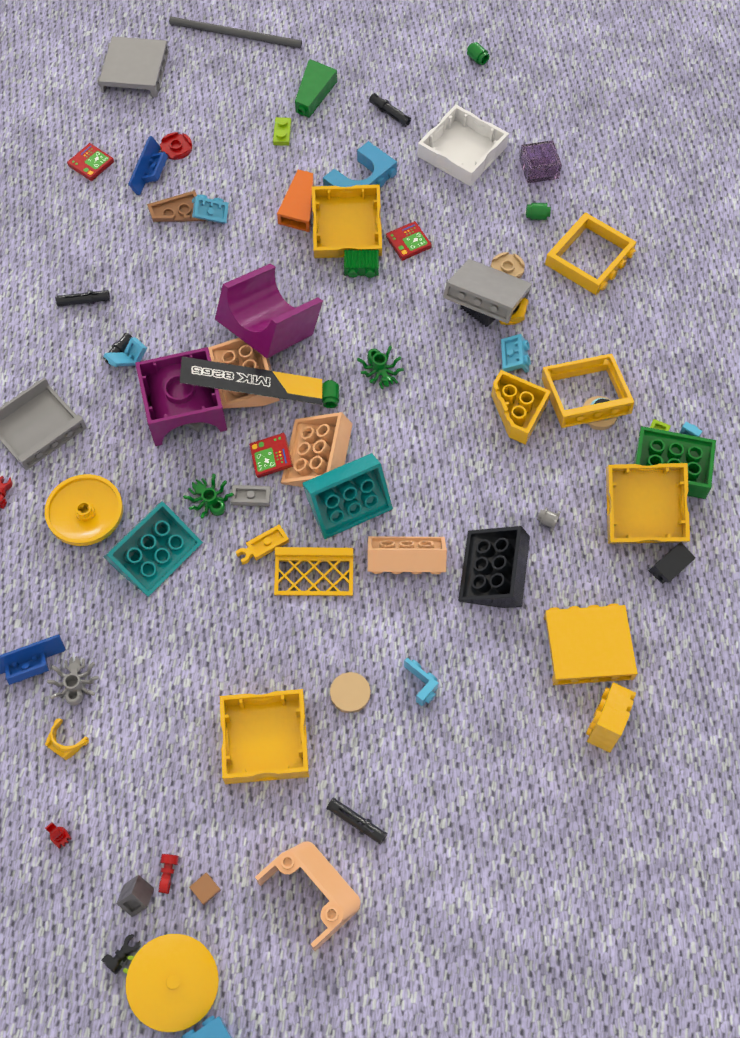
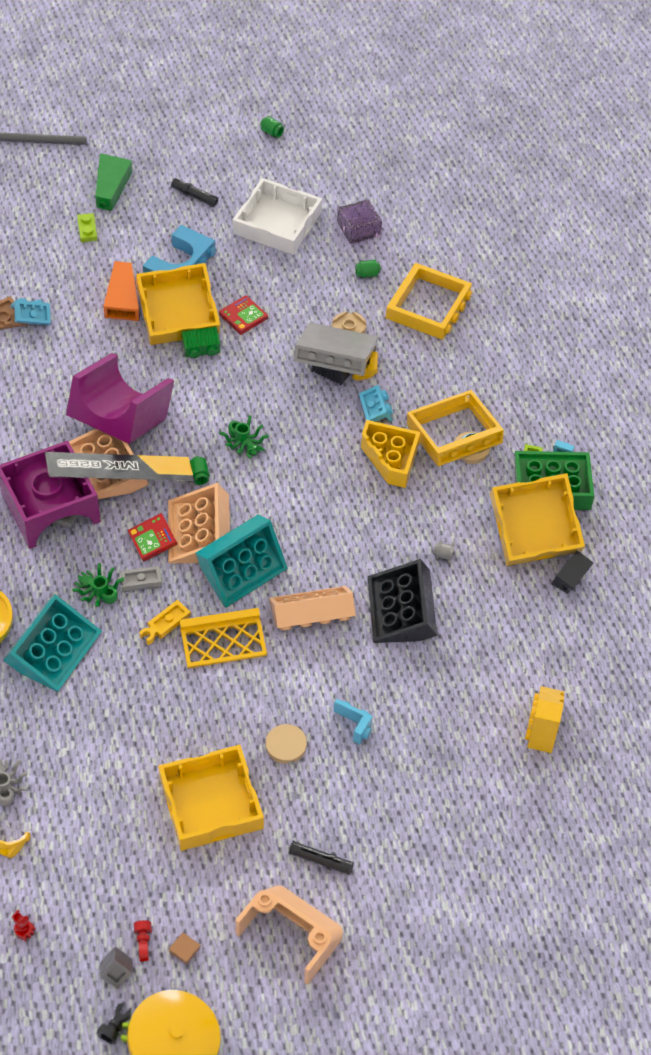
camera: 15 degrees left, 10 degrees down
(590, 644) = (511, 658): yellow panel -> none

